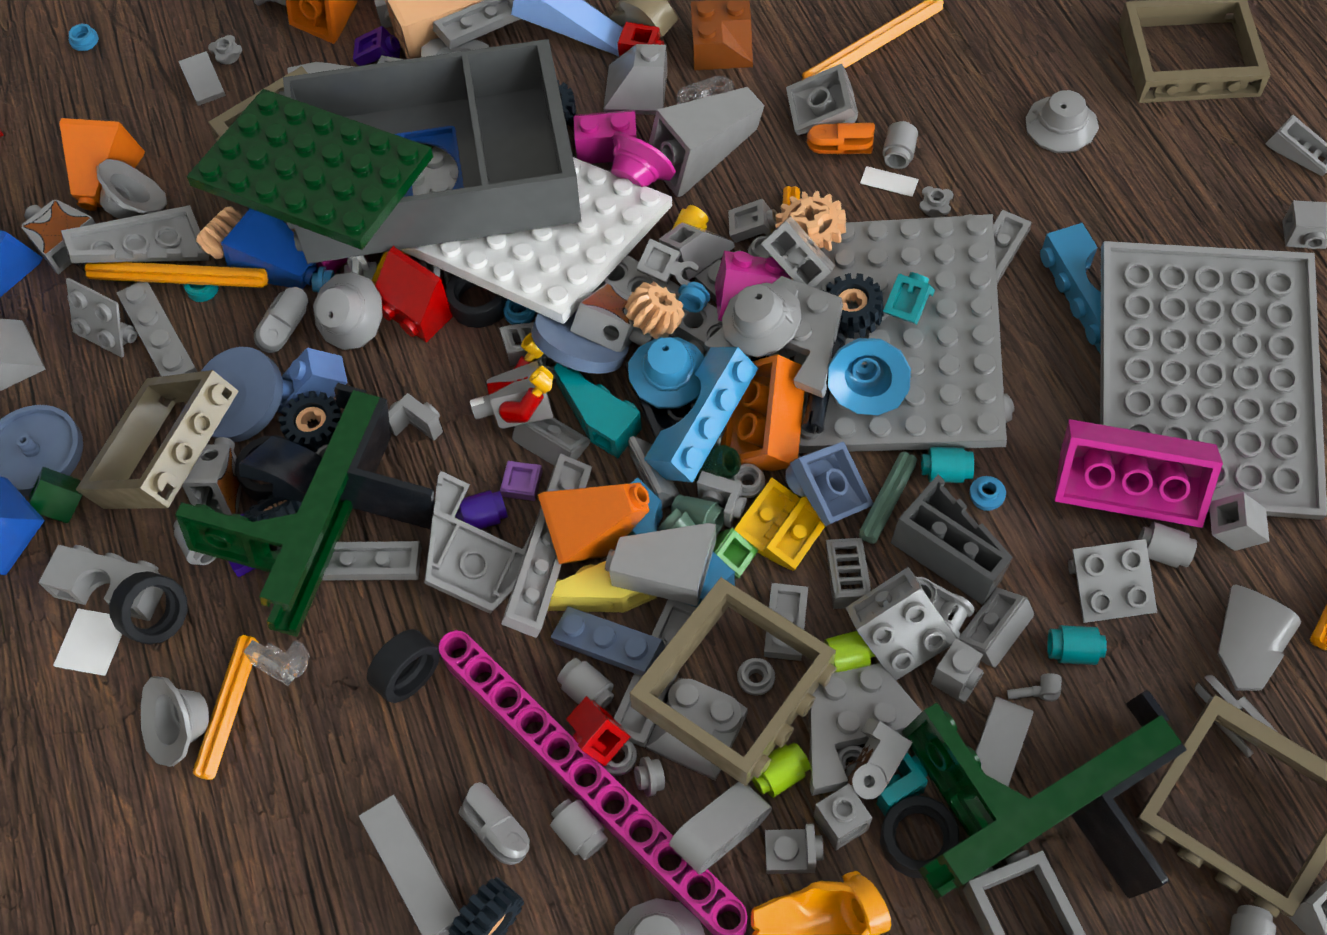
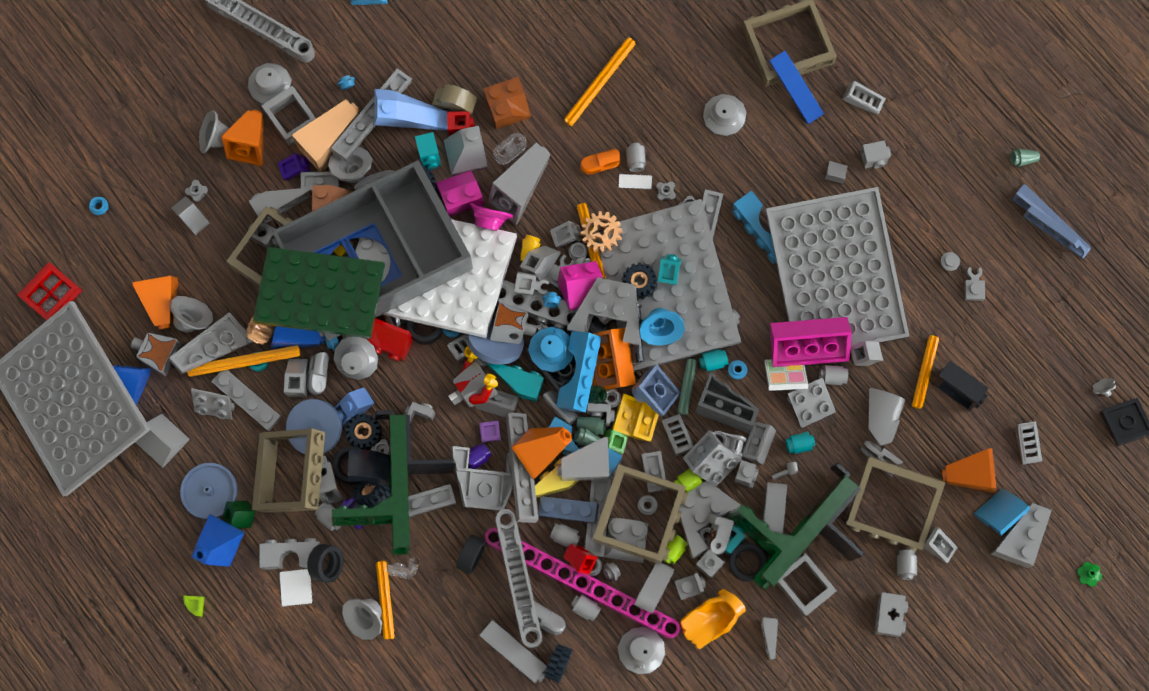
camera: 20 degrees left, 15 degrees up
(238, 318) = (296, 378): none -> light grey slope
(465, 734) = (518, 578): none -> light grey gear
(577, 60) = (428, 151): none -> teal piece
(654, 310) = (534, 317): light nougat gear -> none
(761, 319) = (596, 316): light grey hat -> none
(798, 253) = (602, 260): light grey brick -> none
(822, 100) = (582, 138): light grey slope -> none
(1076, 522) = (785, 377): none -> tile
(1192, 102) = (796, 87): none -> blue tile
(1234, 237) = (836, 172): none -> light grey slope

